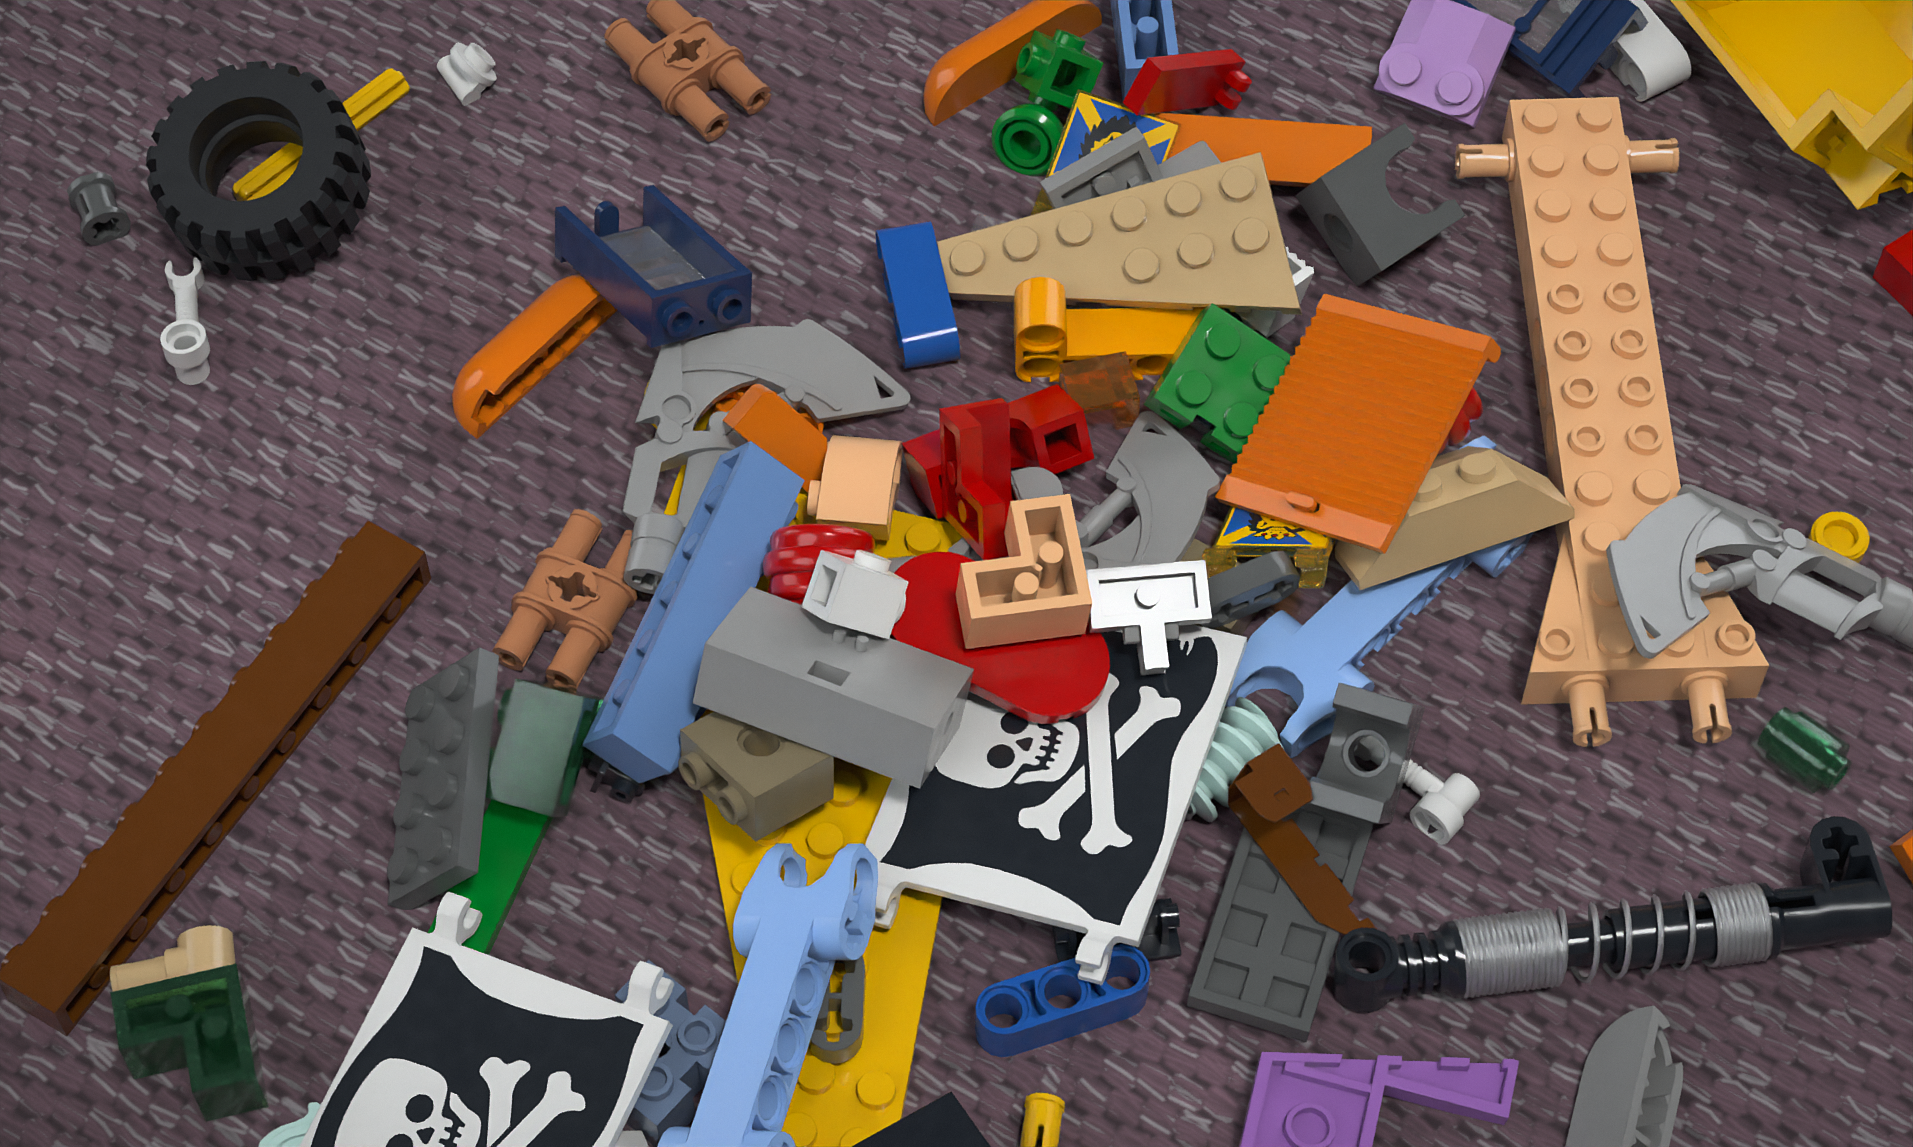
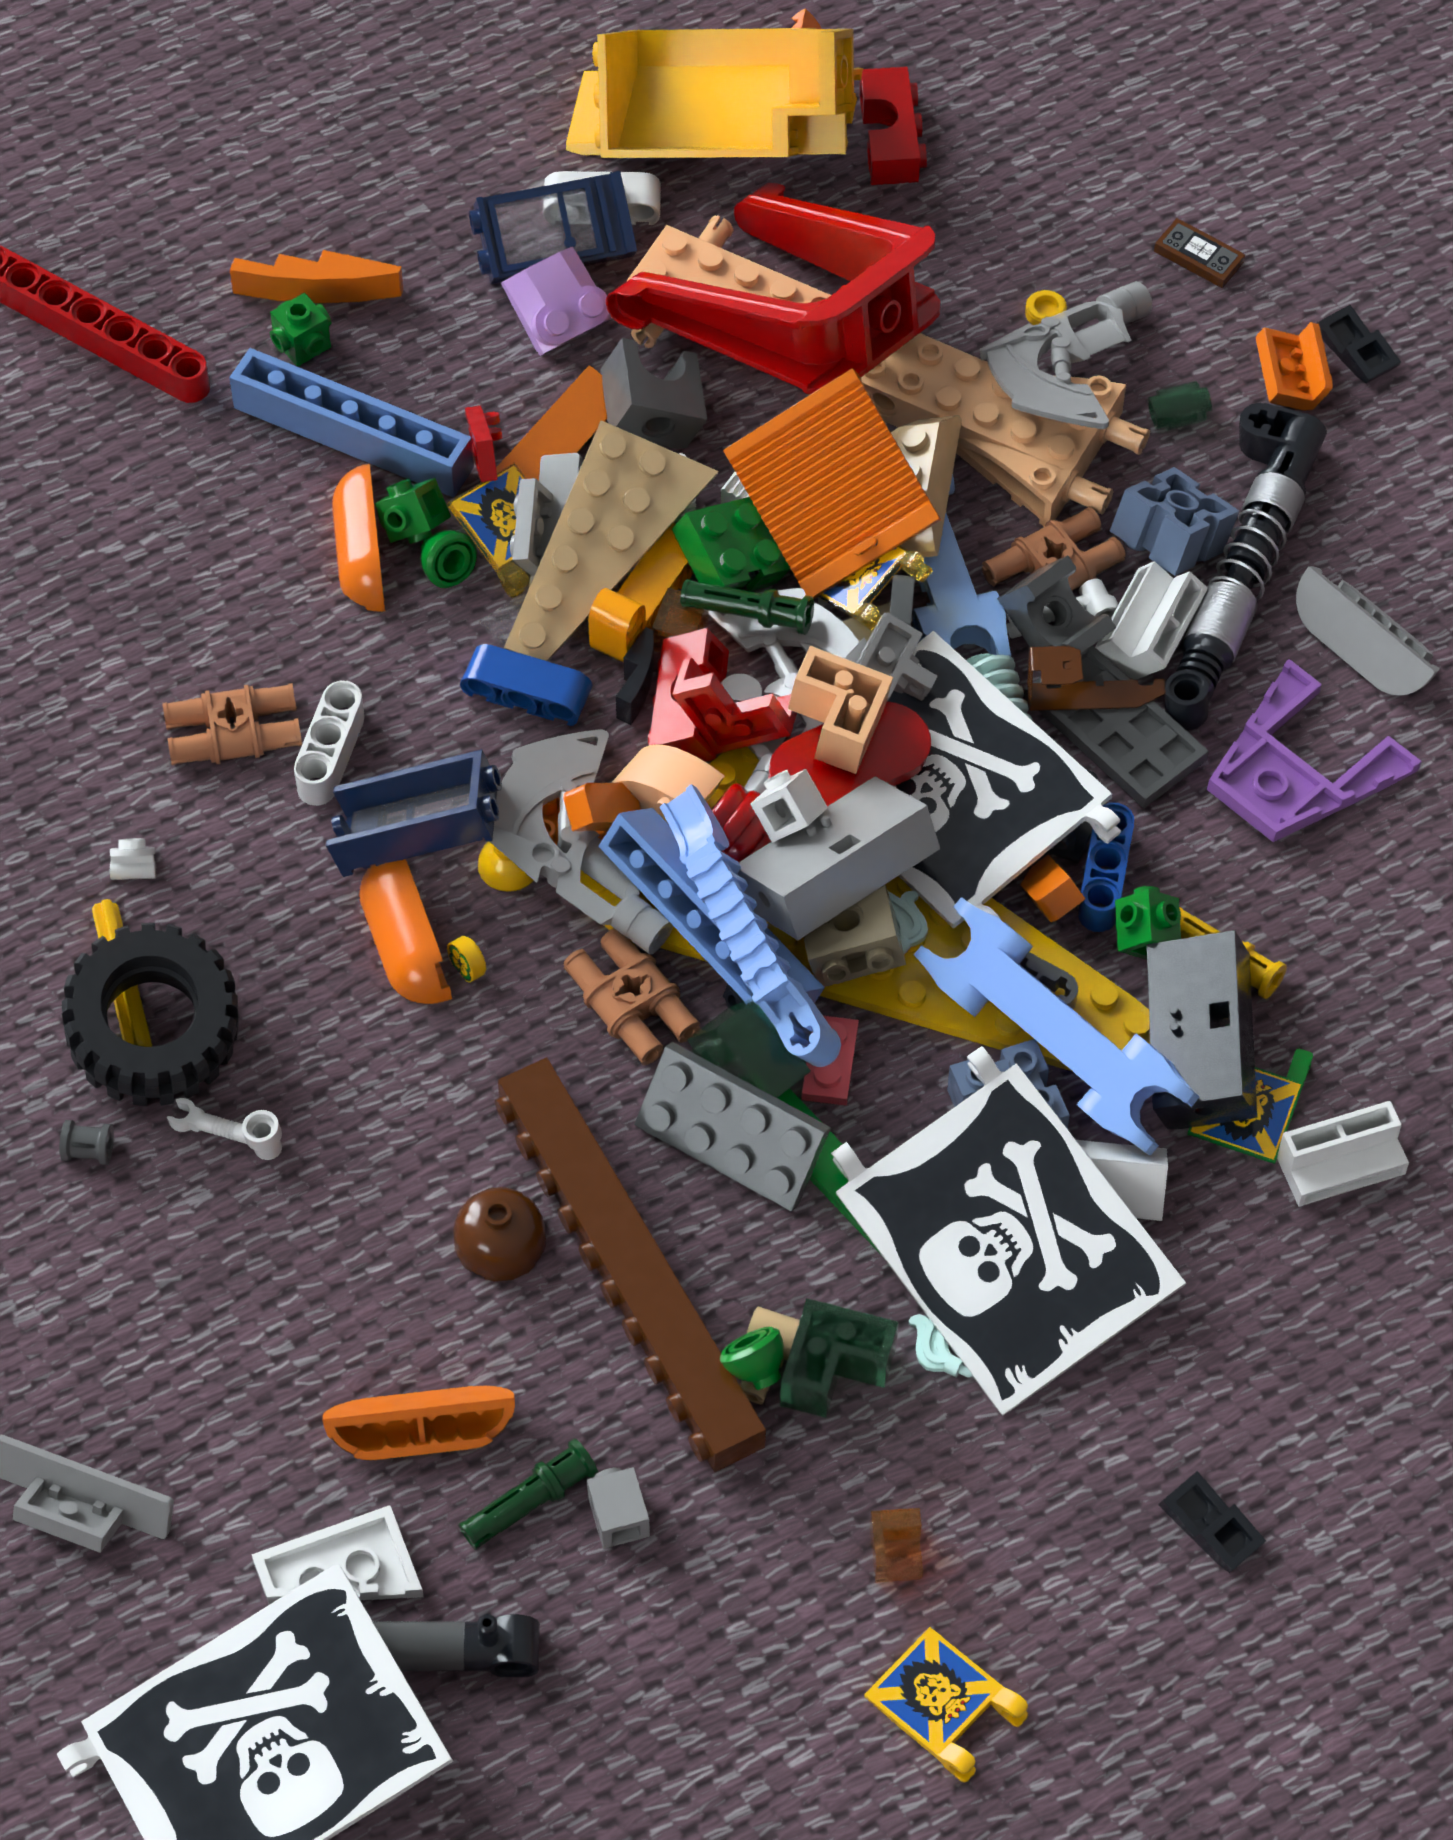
camera: 60 degrees left, 0 degrees up
(136, 950) = (755, 1357): none -> green brick
(193, 631) = (499, 1234): none -> reddish brown cylinder
(524, 420) = (467, 958): none -> yellow tile
(576, 771) = (765, 972): none -> light blue piece
(615, 843) = (832, 1082): none -> coral plate
(719, 156) = (329, 726): none -> white beam
(838, 817) = (909, 919): none -> light aqua piece
(985, 953) = (1051, 889): none -> orange piece
(995, 1081) = (1146, 919): none -> green brick
(1018, 379) = (638, 677): none -> black slope
(1127, 383) = (767, 607): none -> dark green pin
(1451, 869) = (1151, 620): none -> white piece
(1500, 715) = (1053, 543): none -> nougat pin
(1598, 324) = (792, 339): none -> red piece
(1610, 820) = (1174, 521): none -> sand blue brick

